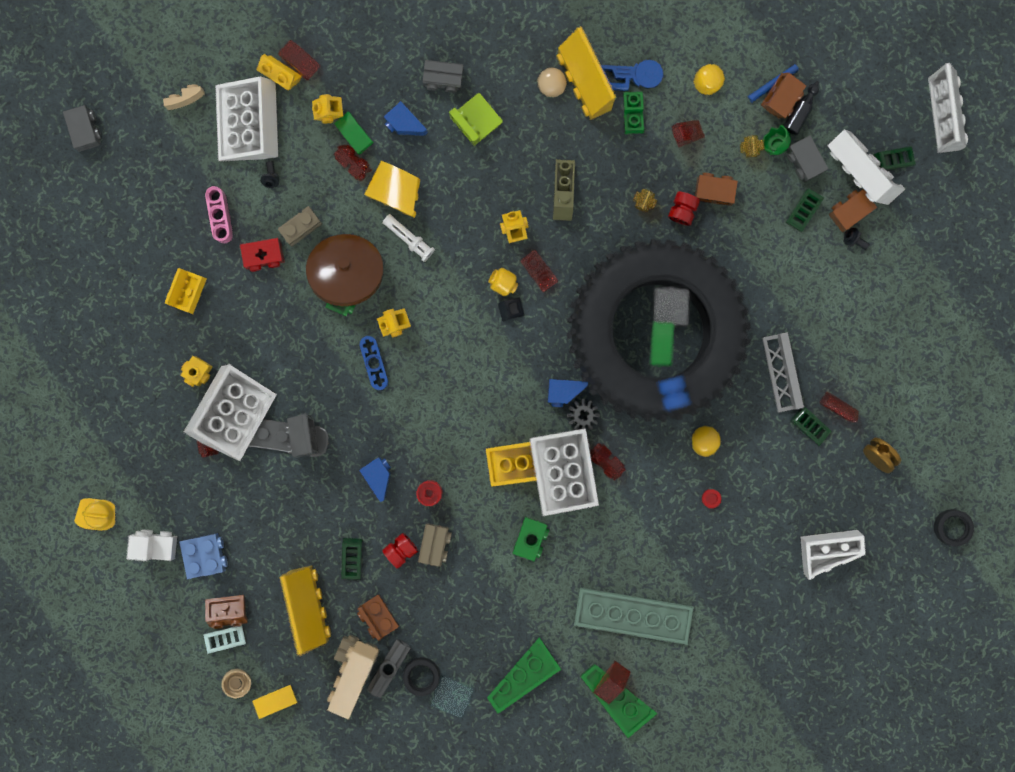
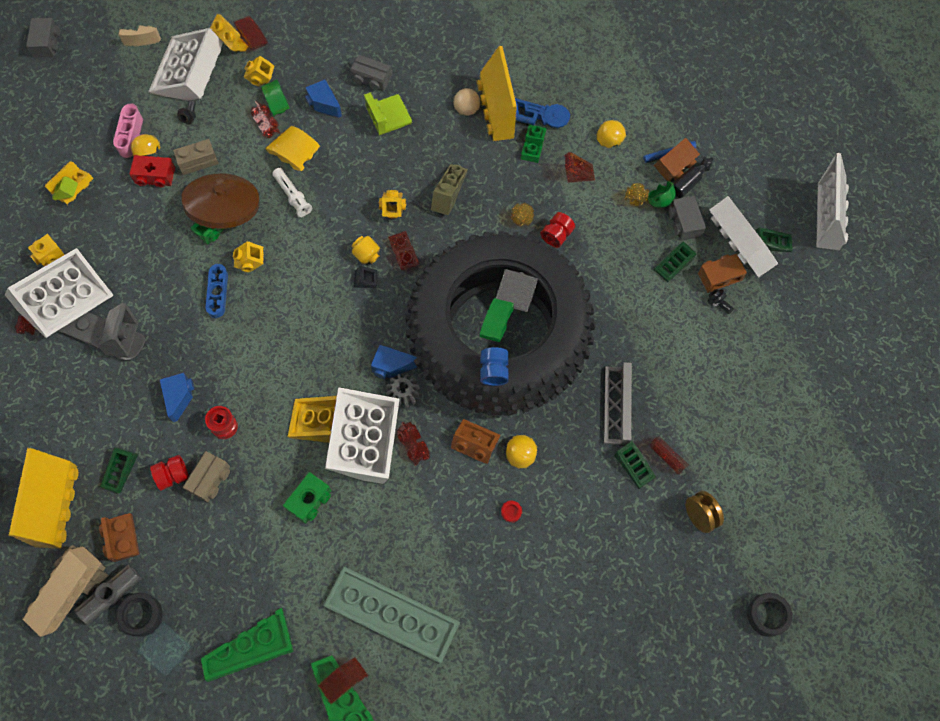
camera: 15 degrees right, 20 degrees down
(186, 301) = (64, 189): none -> lime slope
(244, 229) = (144, 145): none -> yellow hair
(662, 444) = (474, 441): none -> dark orange bracket
(715, 189) = (593, 222): dark orange brick -> none
(830, 550) = (625, 599): white wedge -> none

